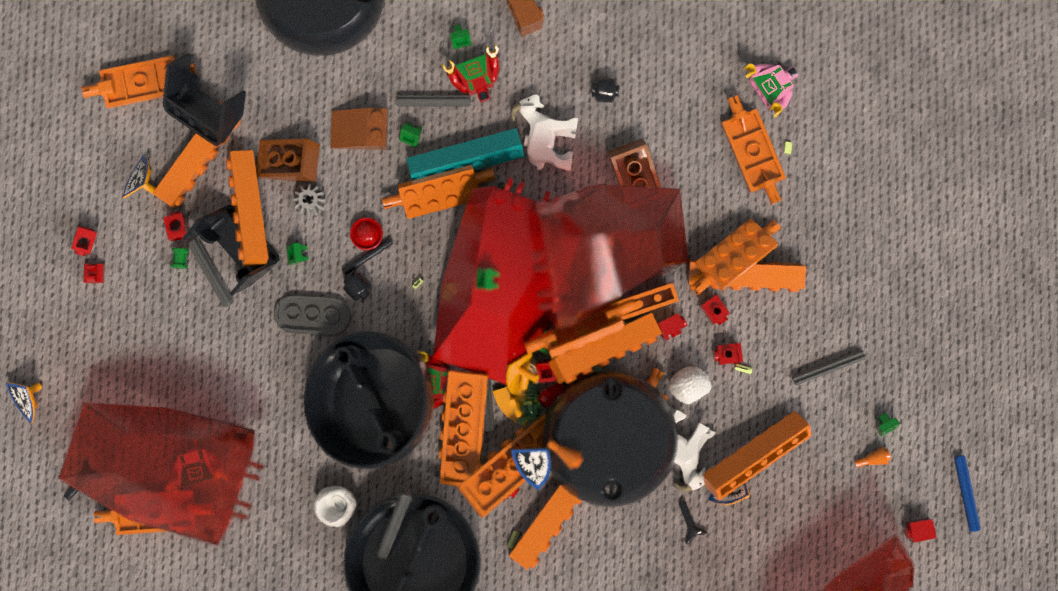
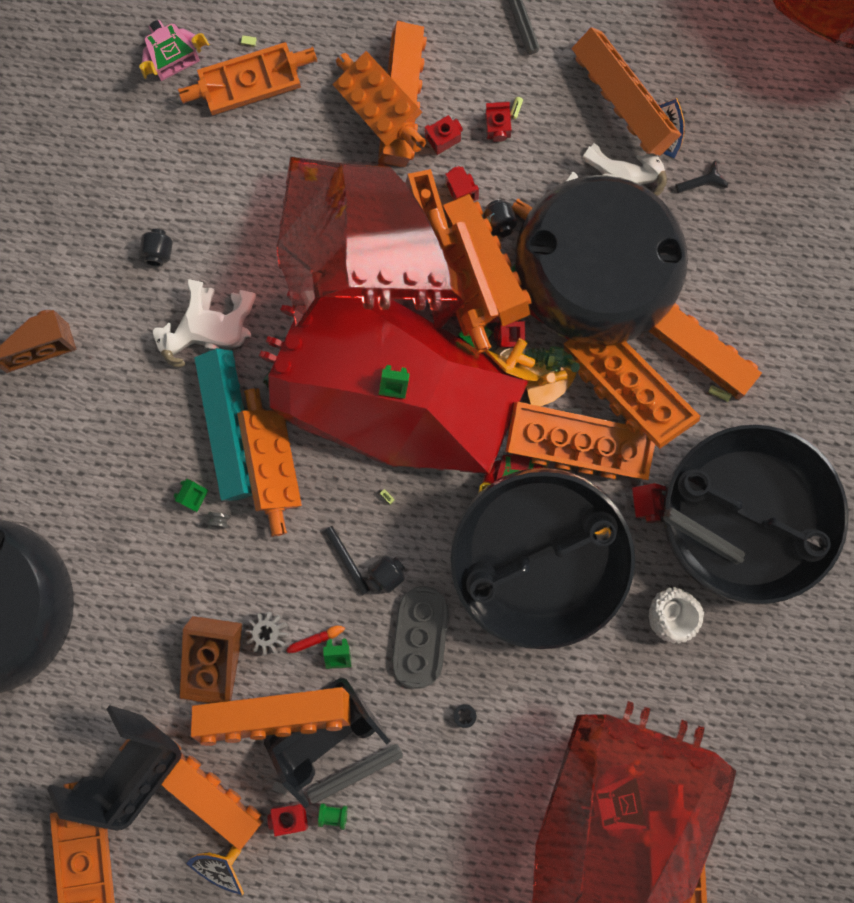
camera: 80 degrees left, 5 degrees down
(255, 345) = (473, 715): none -> black bush
(307, 237) = (315, 639): none -> red piece
(360, 129) = (176, 561): dark orange slope -> none
(366, 233) = (317, 559): red hat -> none
(392, 157) = (218, 520): none -> dark grey bush
(421, 483) = (649, 502): none -> red brick
(433, 100) = (148, 464): dark grey axle -> none
(460, 38) = (68, 424): green tile -> none
(475, 74) = (119, 406): torso -> none
(533, 465) = (632, 352): shield -> none
(549, 394) = (539, 335): red cone -> none
(569, 456) = (629, 295): orange cone -> none
(634, 165) = (254, 217): dark orange slope -> none
(645, 359) = (501, 218): none -> black head
(690, 384) = (535, 164): white hair -> none

